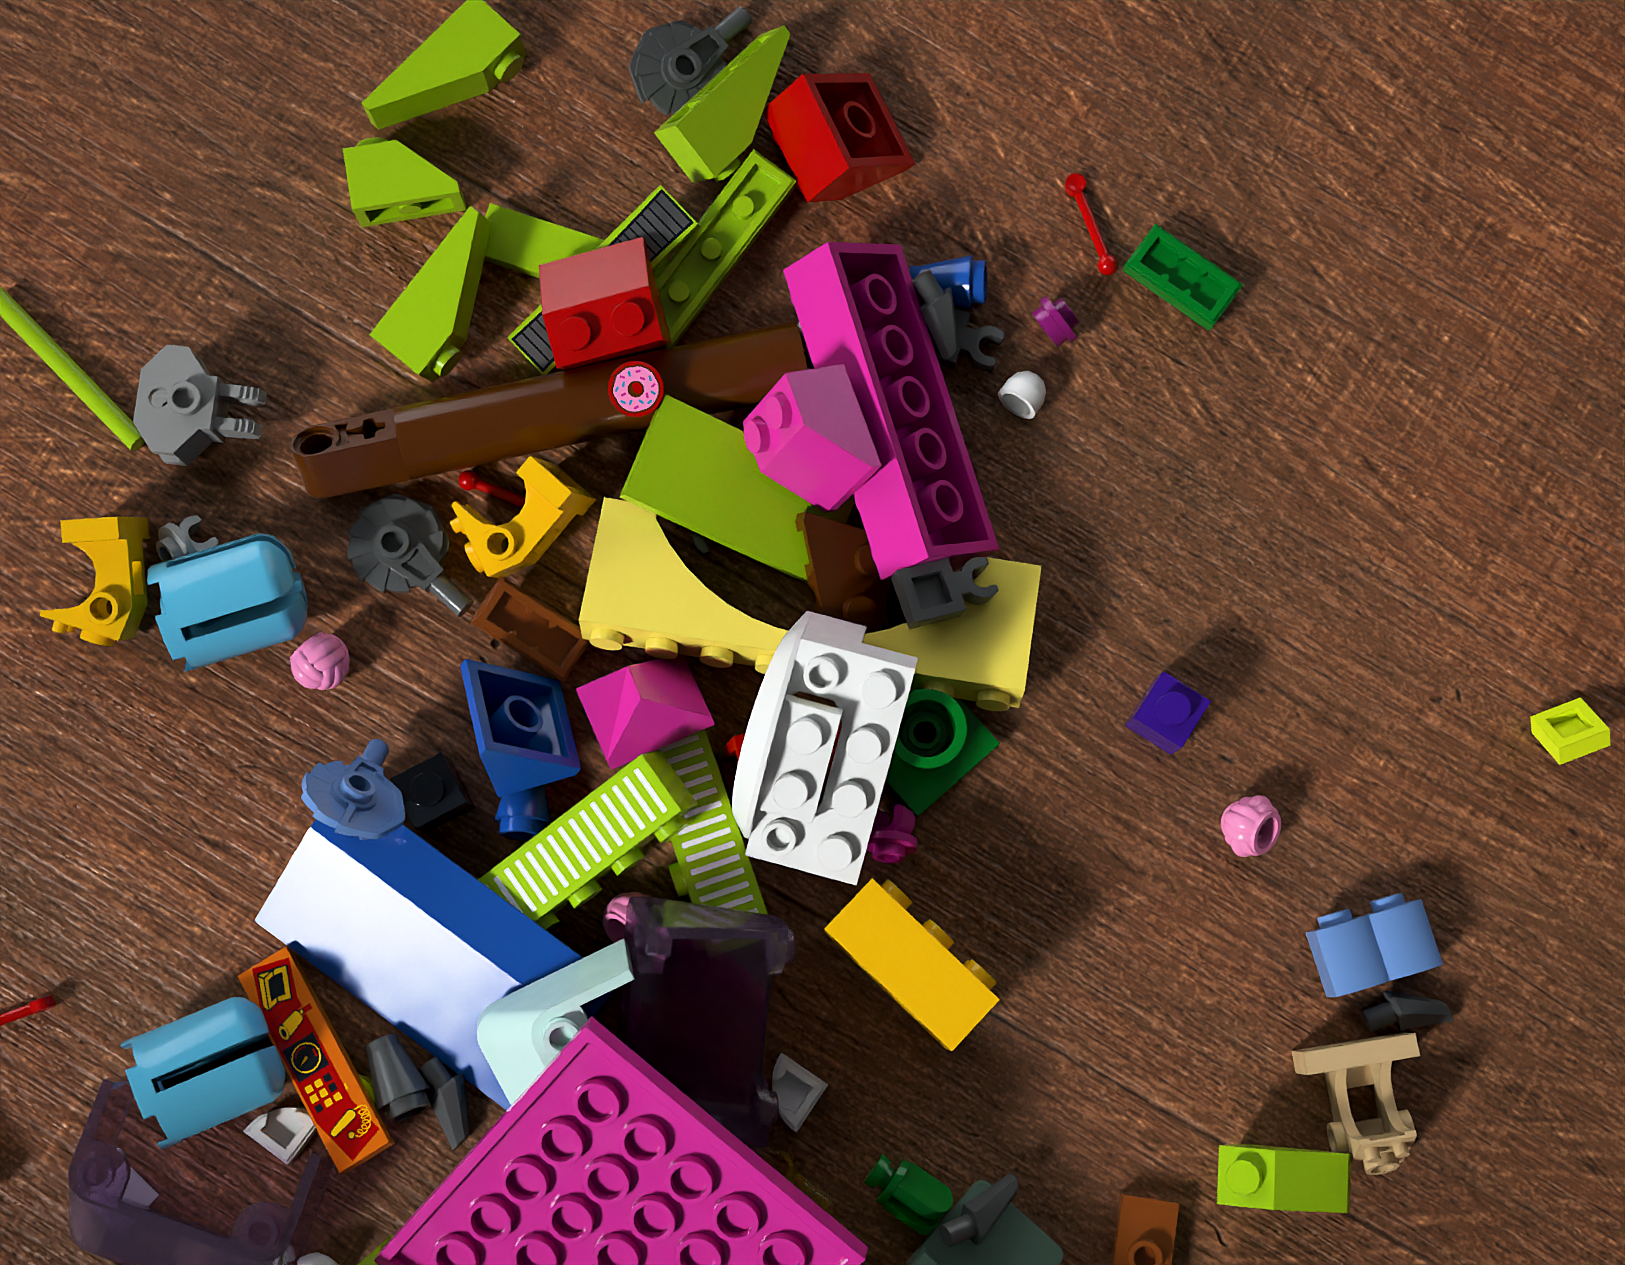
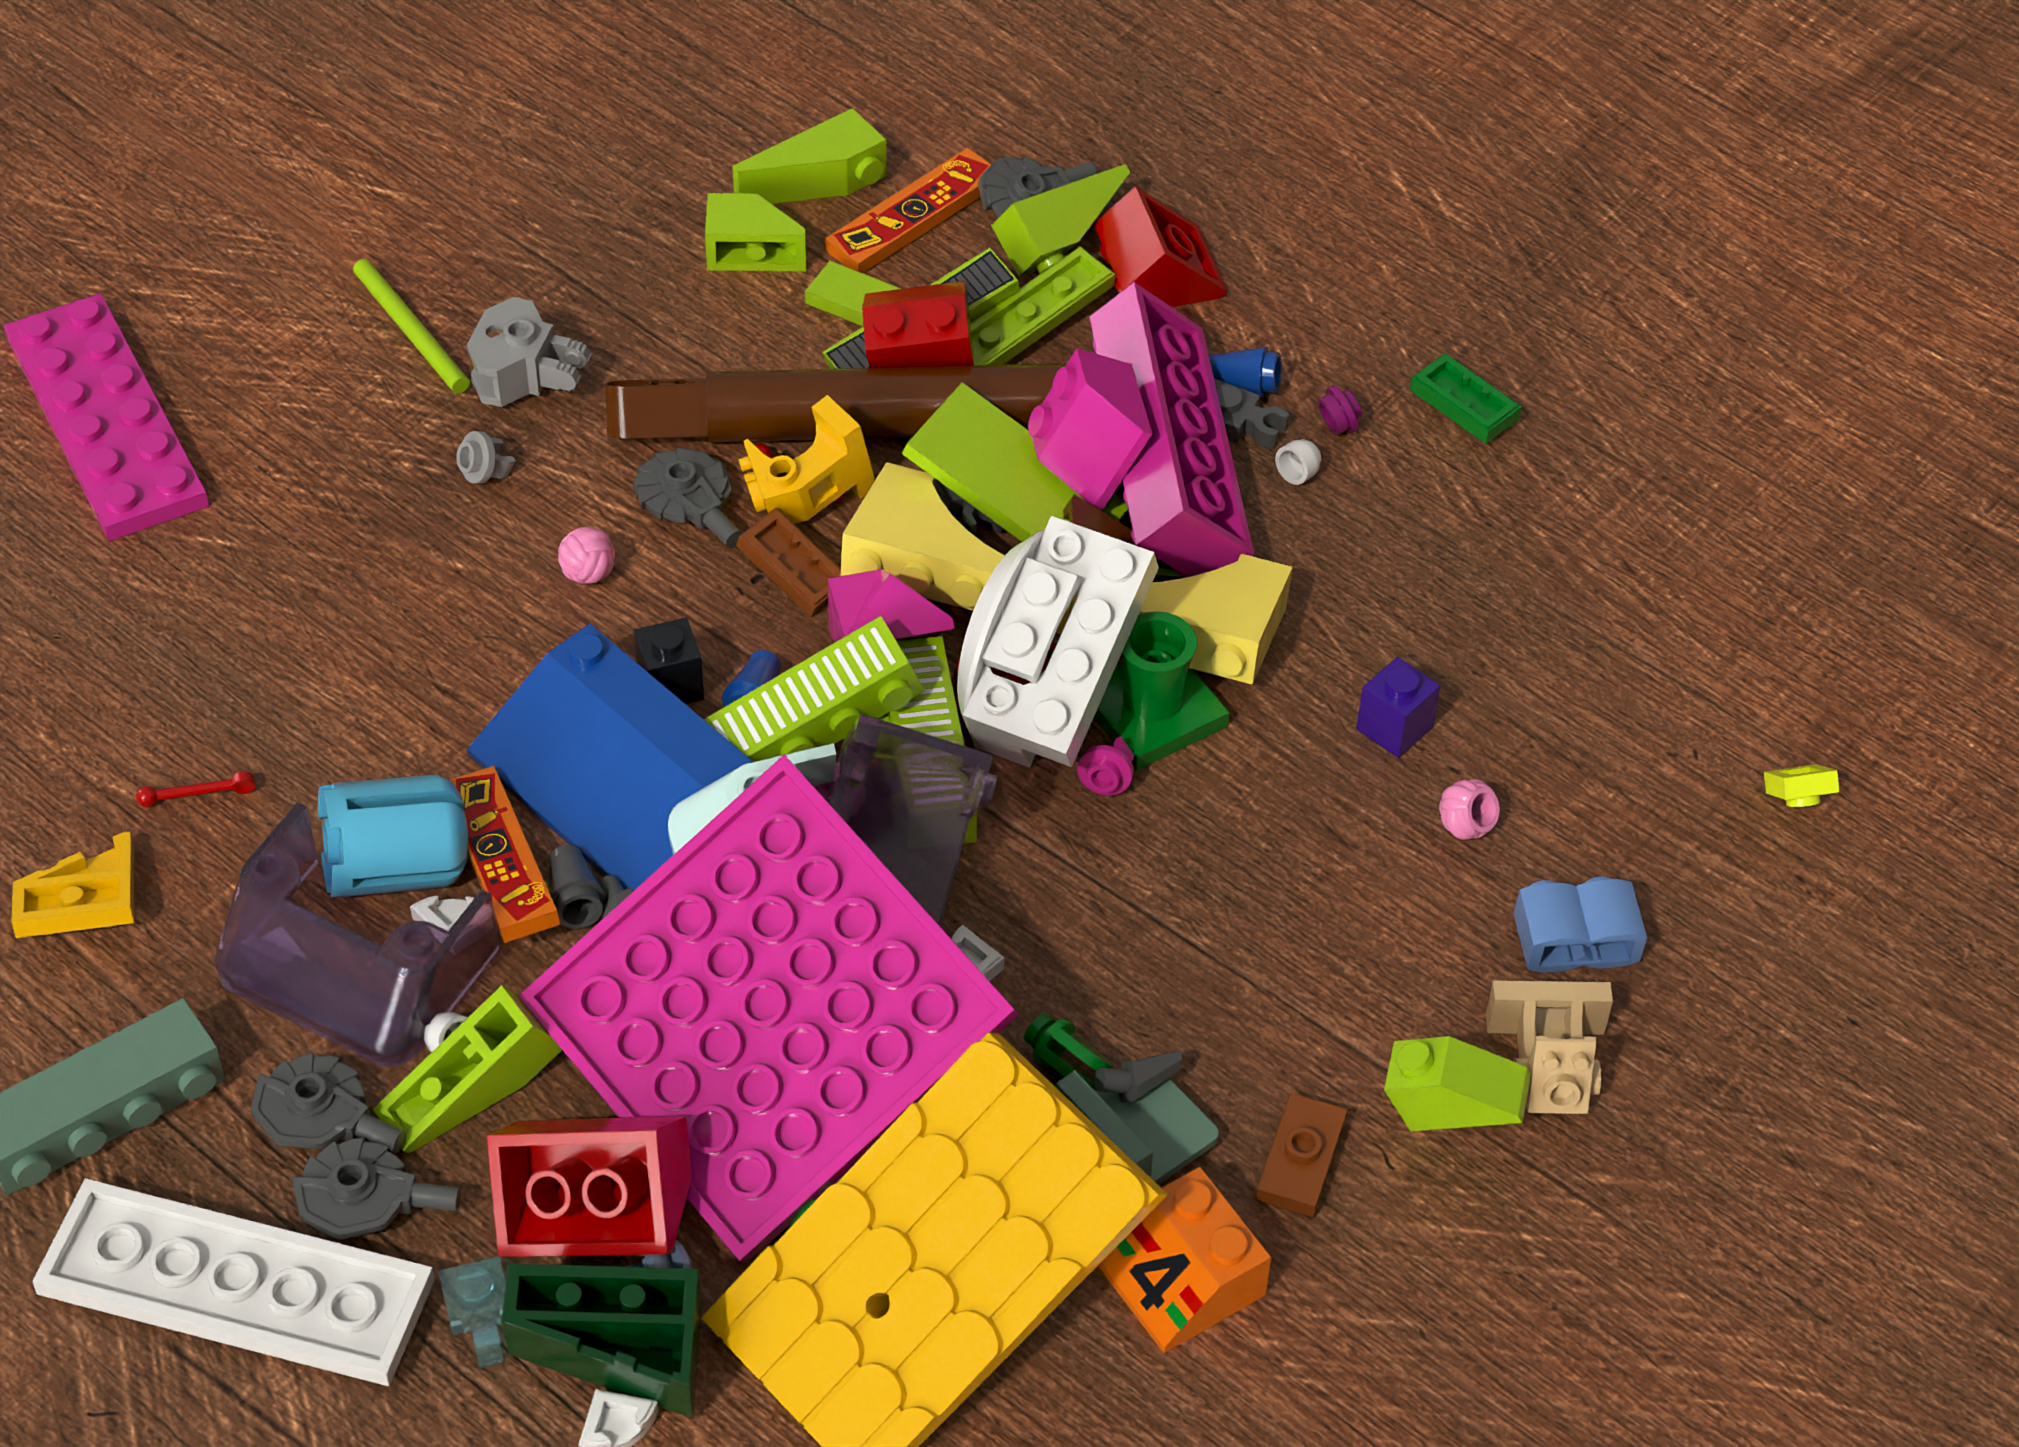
camera: 10 degrees right, 30 degrees down
(120, 583) = (421, 443): yellow tile -> none
(229, 600) = (519, 485): medium azure cylinder -> none
(355, 796) = (599, 618): medium blue piece -> none
(437, 306) = (762, 317): lime slope -> none
(519, 727) = (762, 619): blue slope -> none
(562, 110) = (908, 213): none -> tile
(635, 388) = (934, 375): tile -> none
(913, 963) = (1106, 850): yellow brick -> none
(936, 593) = (1190, 557): dark grey plate -> none
(938, 312) = (1228, 376): dark grey bar -> none
(1075, 187) = (1376, 328): red hinge -> none
(1406, 1012) = (1624, 992): dark grey bar -> none

